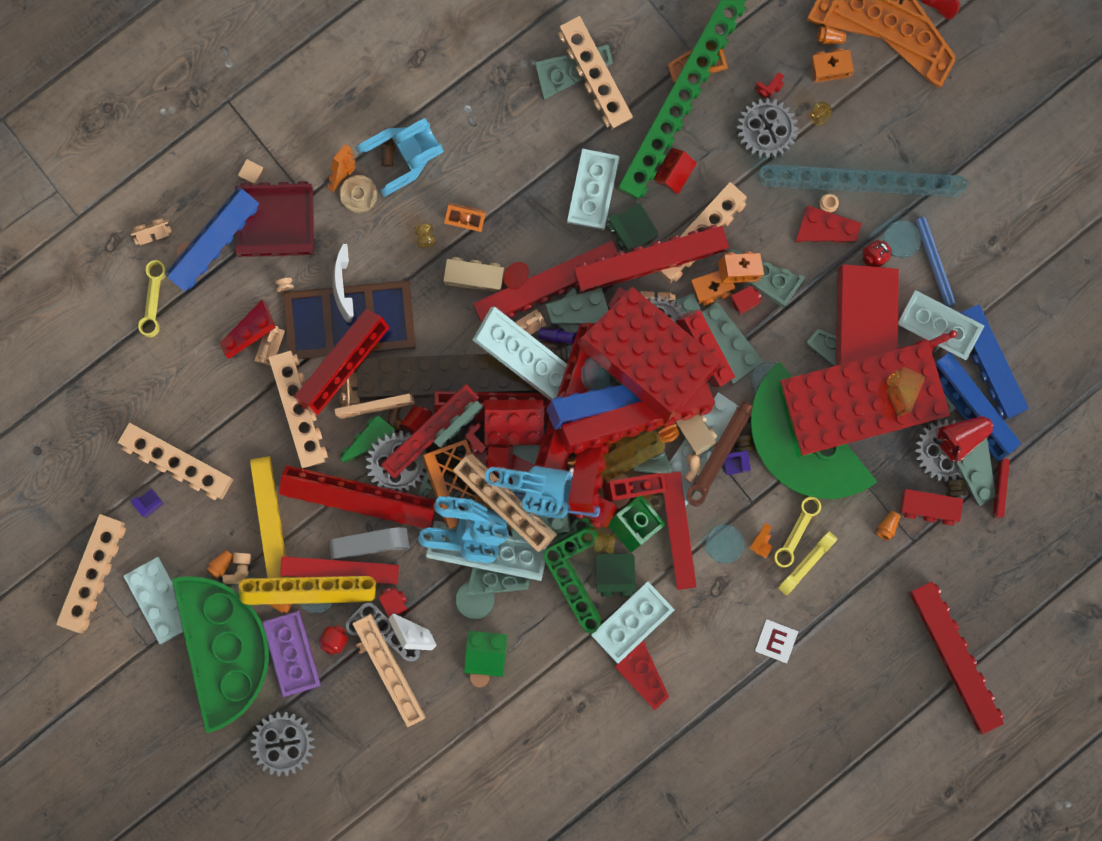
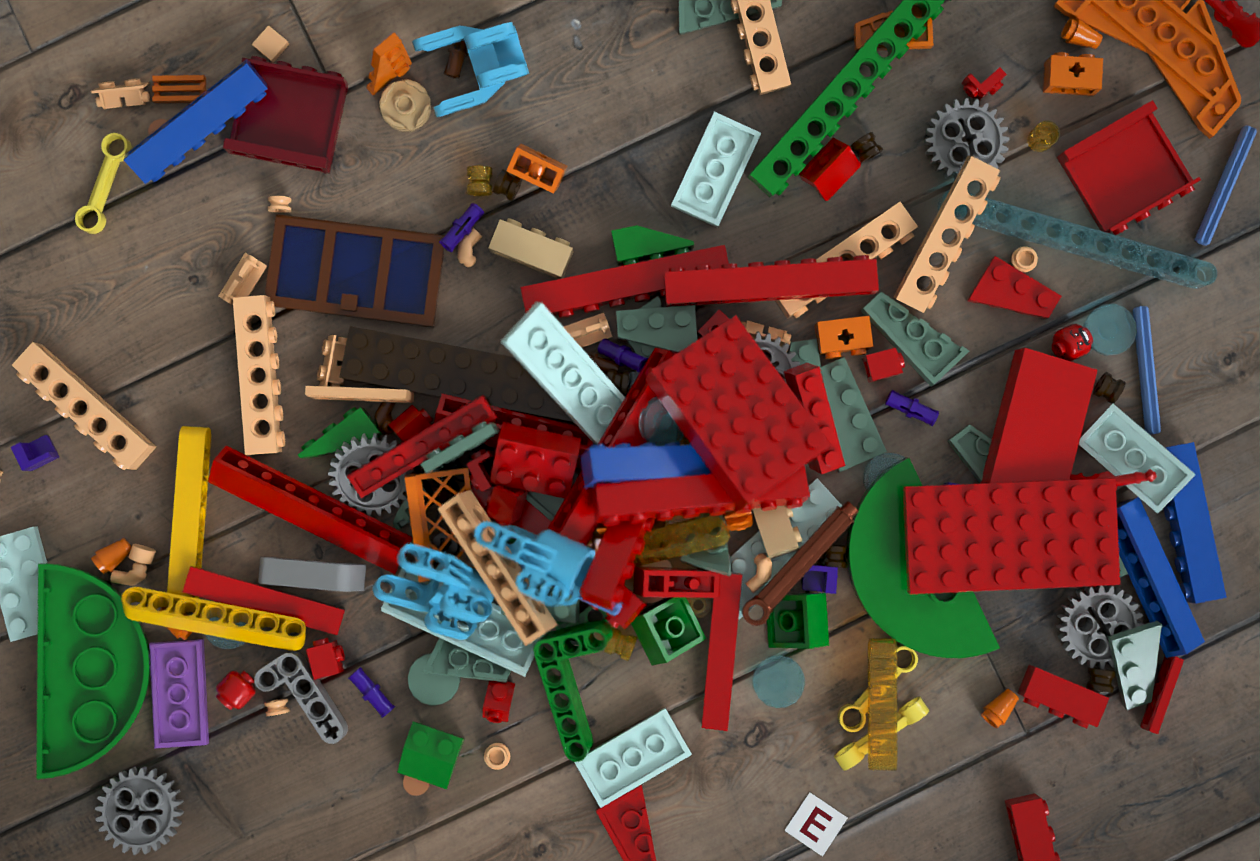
camera: 15 degrees right, 5 degrees up
(189, 212) = (157, 88): none -> orange tile
(250, 329) = (218, 255): red wing -> none
(341, 362) = (326, 326): red brick -> none
(344, 304) = (359, 192): white slope -> none
(389, 670) = (297, 748): light nougat plate -> none
(411, 635) = (337, 708): white wing -> none
(415, 281) = (451, 240): none -> dark purple pin
(425, 285) = (465, 248): none -> light nougat arm
(431, 619) = (371, 692): none -> dark purple pin
(446, 233) = (507, 185): none -> dark brown wheel
(516, 274) = (587, 261): red sticker -> none
(525, 605) = (498, 701): none -> red bracket
(534, 644) = (497, 756): none -> light nougat plate
(553, 253) = (641, 243): none -> green slope
(615, 574) = (625, 690): dark green bracket -> none
(632, 228) = (755, 234): dark green bracket -> none
(697, 149) = (867, 147): none -> dark brown wheel
(729, 497) = (799, 622): none -> green slope
(740, 267) = (887, 320): orange brick -> none
(755, 224) = (958, 195): none -> light nougat brick
(760, 543) = (827, 691): orange bracket -> none
(774, 326) = (912, 408): none -> dark purple pin
(802, 540) = (882, 704): none -> clear yellow beam
(886, 124) = (1126, 170): none -> red panel
(904, 389) = (1070, 541): clear yellow slope -> none
(911, 280) = (1109, 388): none -> dark brown wheel
(959, 119) = (1225, 185): none -> medium blue axle
(963, 437) = (1132, 619): red cone -> none

